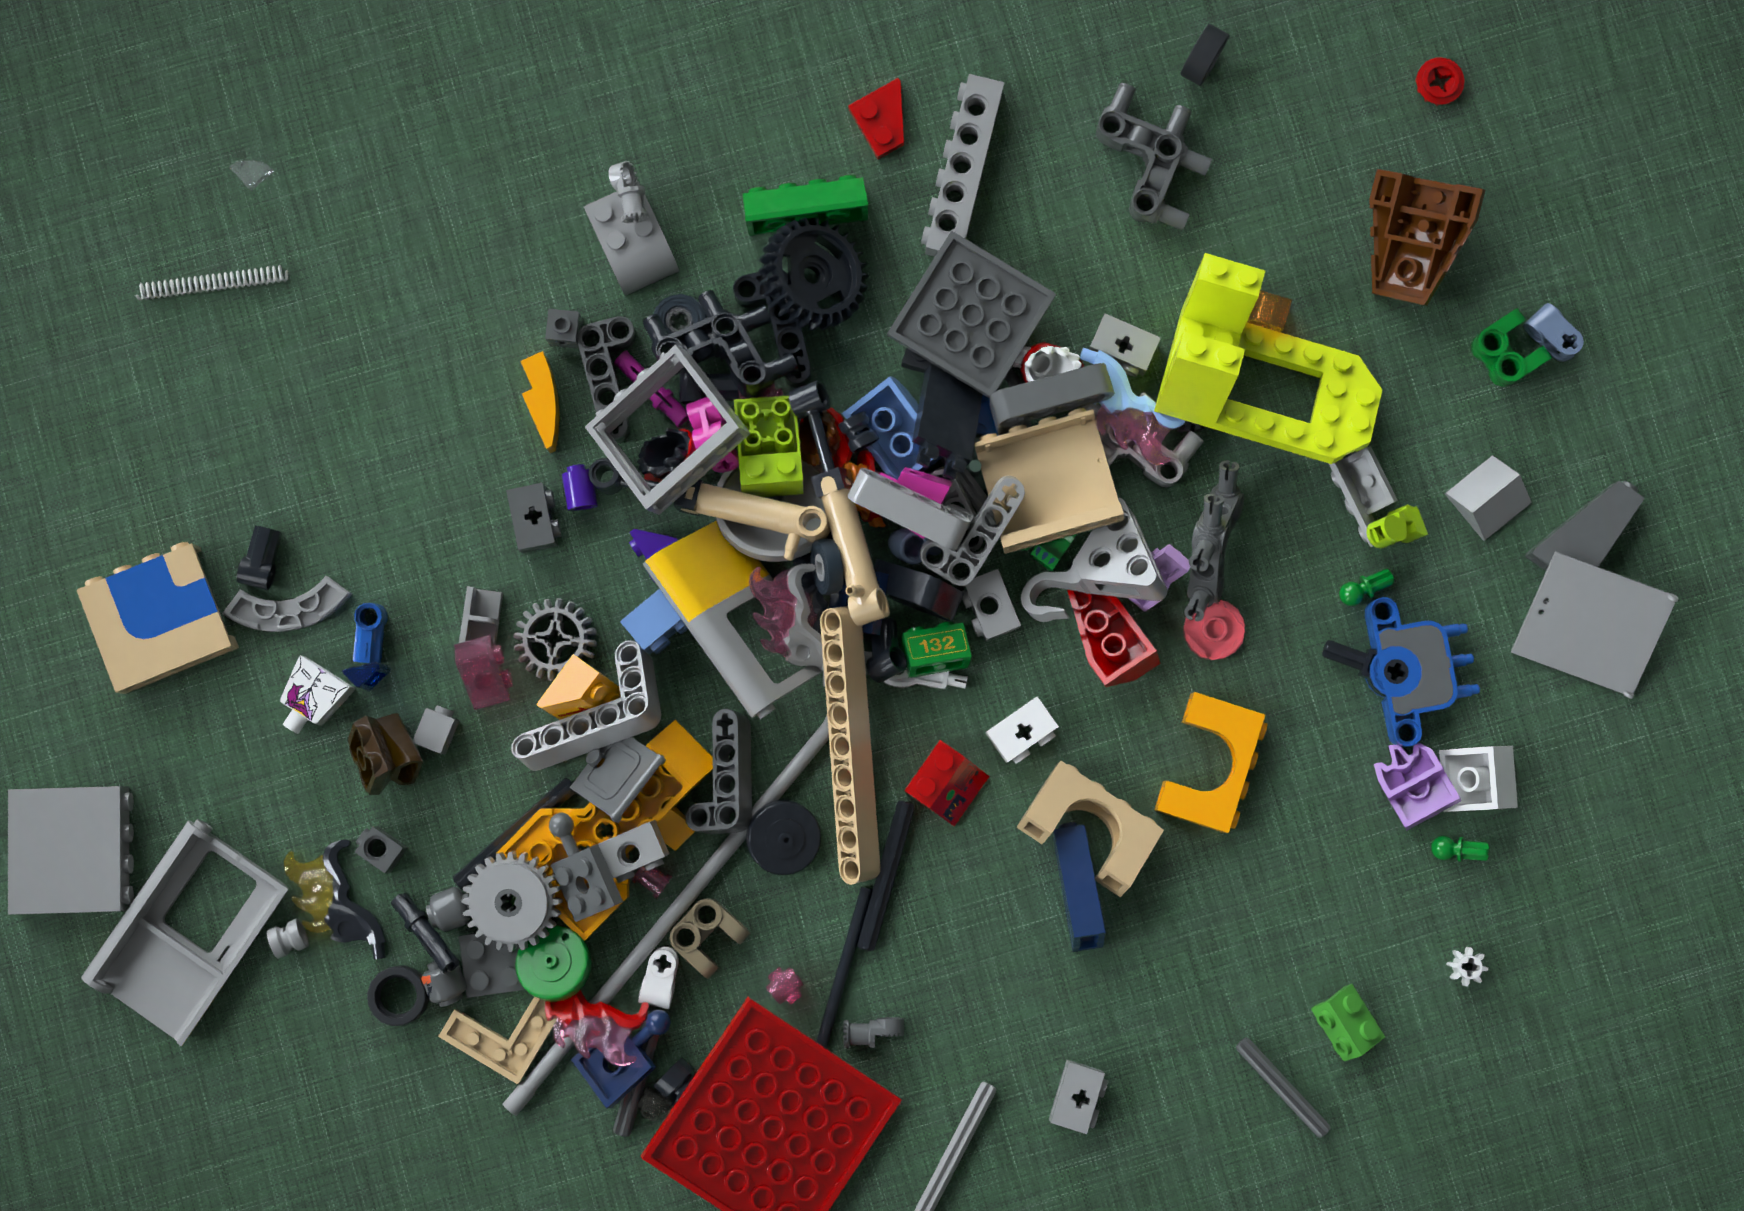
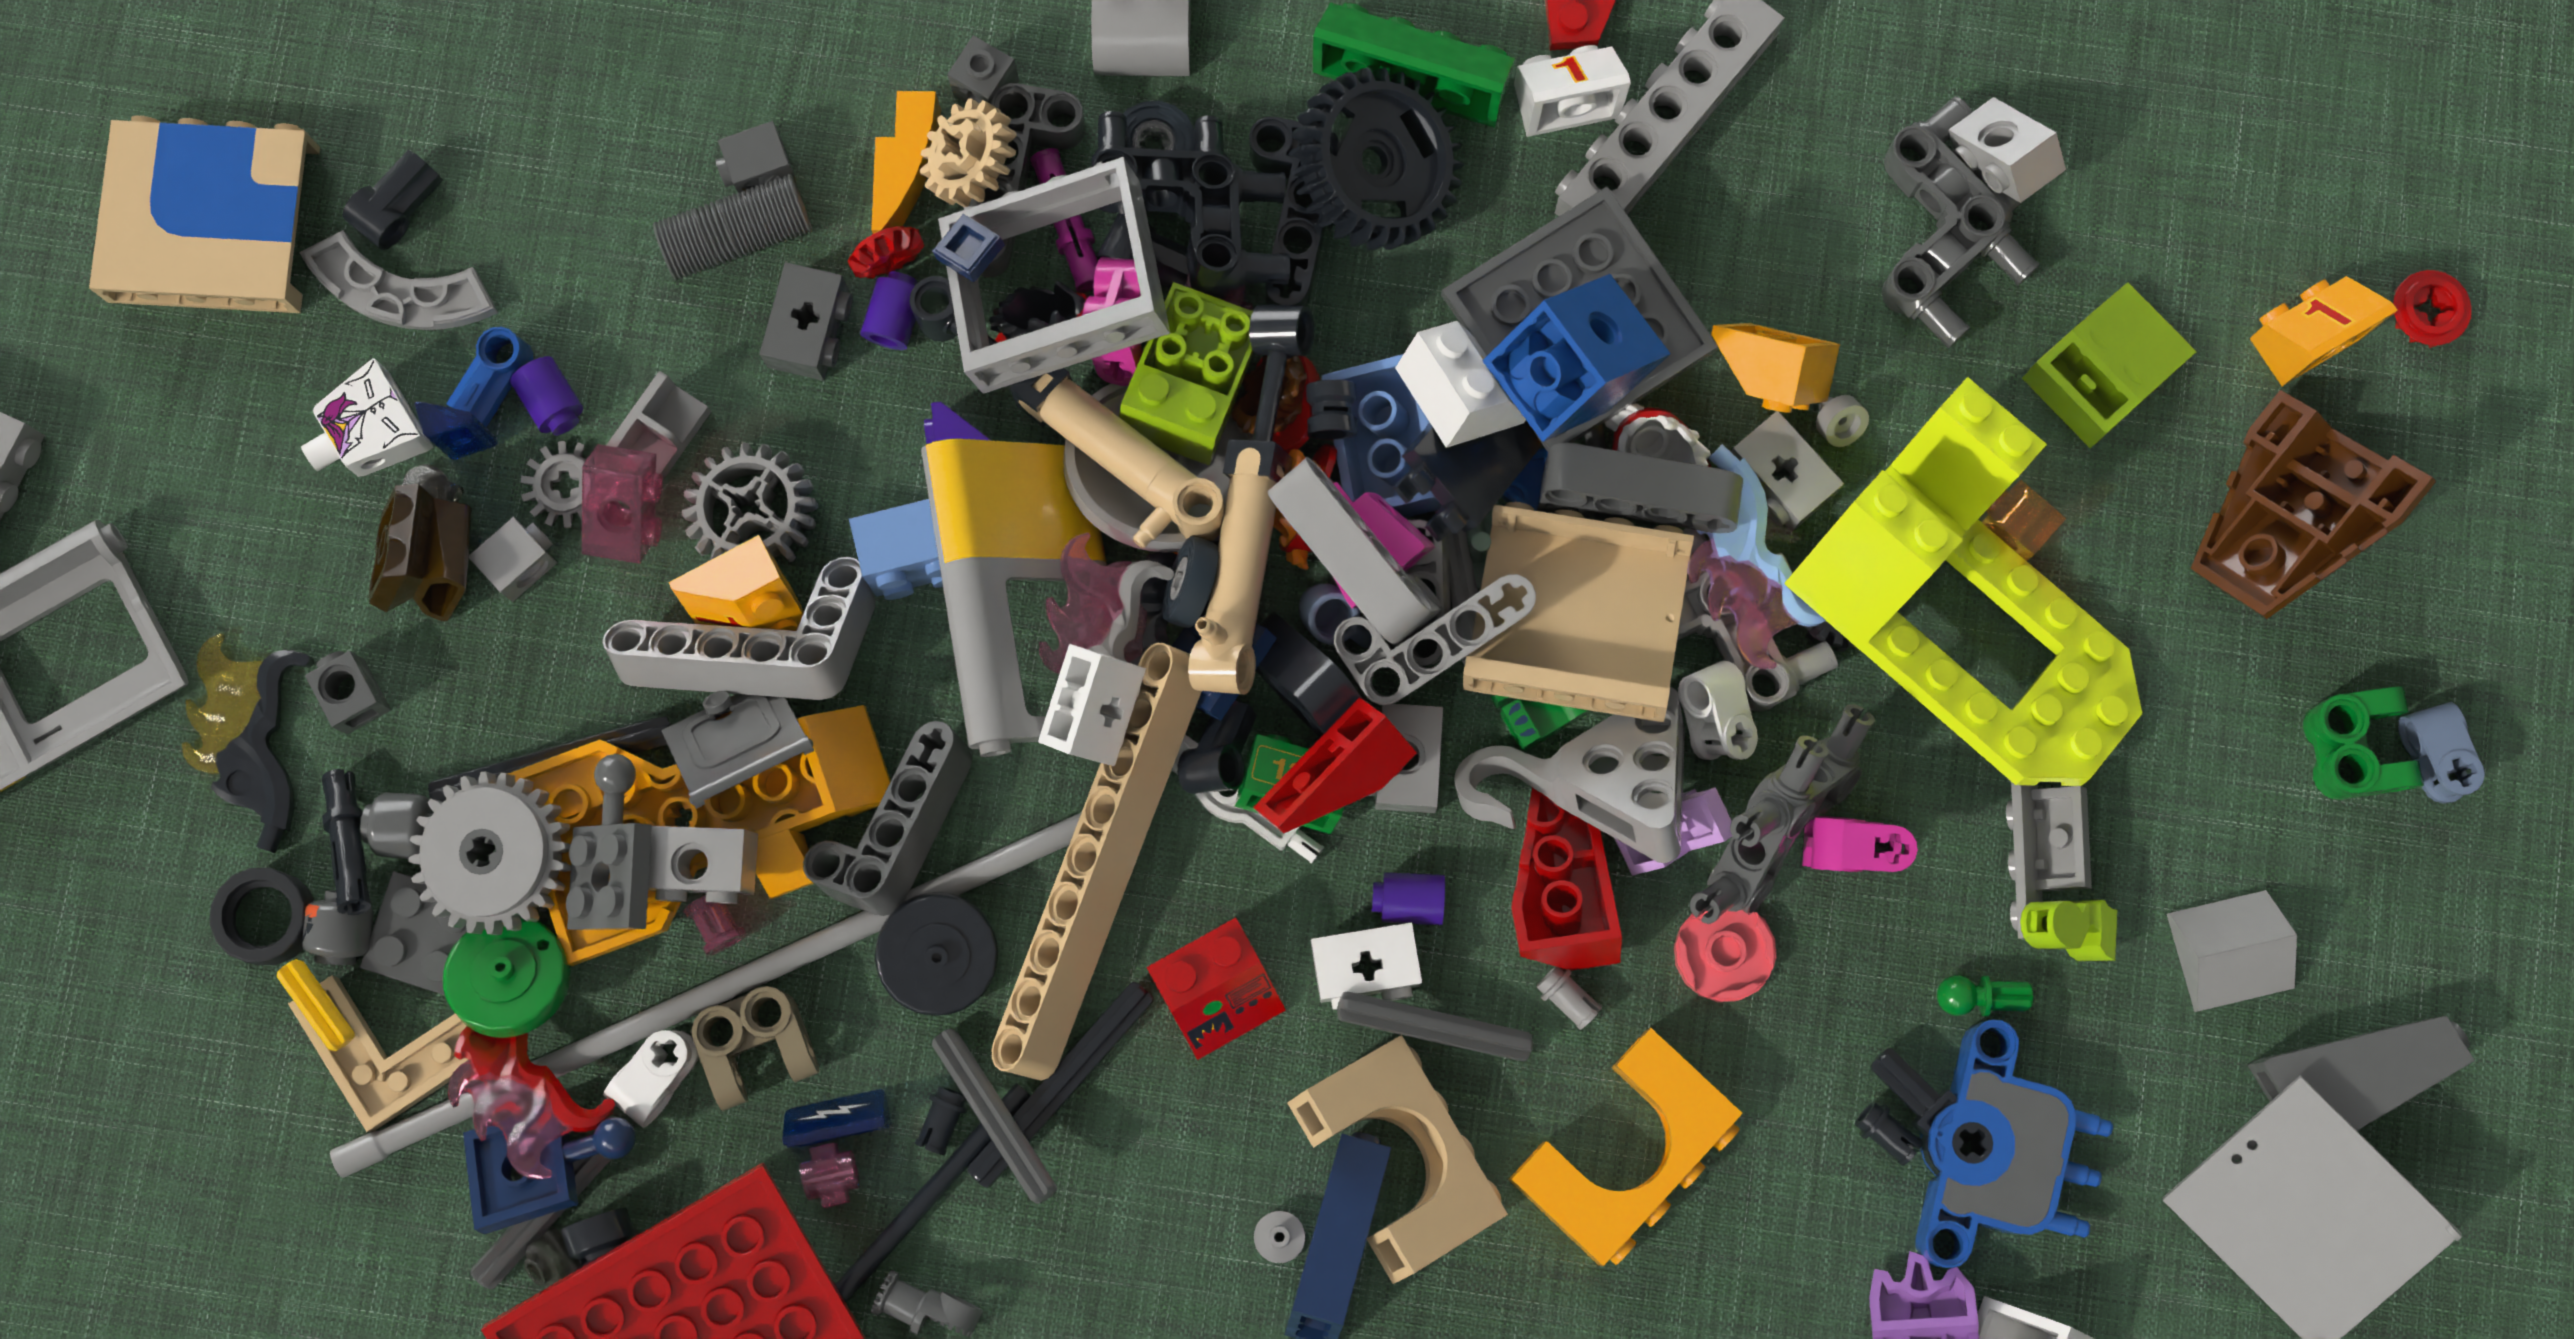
camera: 25 degrees right, 5 degrees down
(285, 939) = (148, 756): light grey wheel -> none
(367, 708) = (434, 482): none -> clear smoke plate
(408, 629) = (547, 396): none -> dark purple brick
(429, 671) = (549, 473): none -> light grey gear
(455, 1029) = (315, 1005): none -> yellow axle
(457, 438) = (753, 157): none -> dark grey brick
(465, 483) = (750, 220): none -> dark grey piece
(559, 456) = (885, 251): none -> red gear
(581, 379) = (968, 152): none -> tan gear
(612, 436) = (968, 248): none -> dark blue tile
(772, 953) = (836, 1119): none -> clear blue slope
(807, 662) = (1091, 705): none -> white brick
(830, 926) = (941, 1120): none -> black pin
(859, 910) = (994, 1116): none -> dark grey axle
(902, 179) = (1571, 89): none -> white slope
(924, 386) = (1455, 386): none -> white slope
(959, 632) = (1343, 766): none -> red slope
(983, 342) = (1575, 356): none -> blue brick
(1029, 682) = (1410, 898): none -> dark purple brick
(1041, 893) = (1279, 1251): none -> light grey tile
(1076, 746) = (1434, 1026): none -> dark grey axle
(1092, 286) = (1778, 364): none -> light orange slope
(1140, 695) = (1568, 997): none -> light grey pin
(1142, 300) = (1841, 420): none -> light grey tile
(1148, 499) = (1716, 708): none -> white piece
(1164, 102) = (2007, 149): none -> light grey brick
(1204, 54) = (2097, 110): black tyre -> none
(1255, 541) = (1850, 845): none -> dark pink piece
(1276, 198) = (2108, 364): none -> lime slope
(1347, 686) = (1888, 1132): none -> black pin
(1382, 123) = (2319, 326): none -> light orange slope

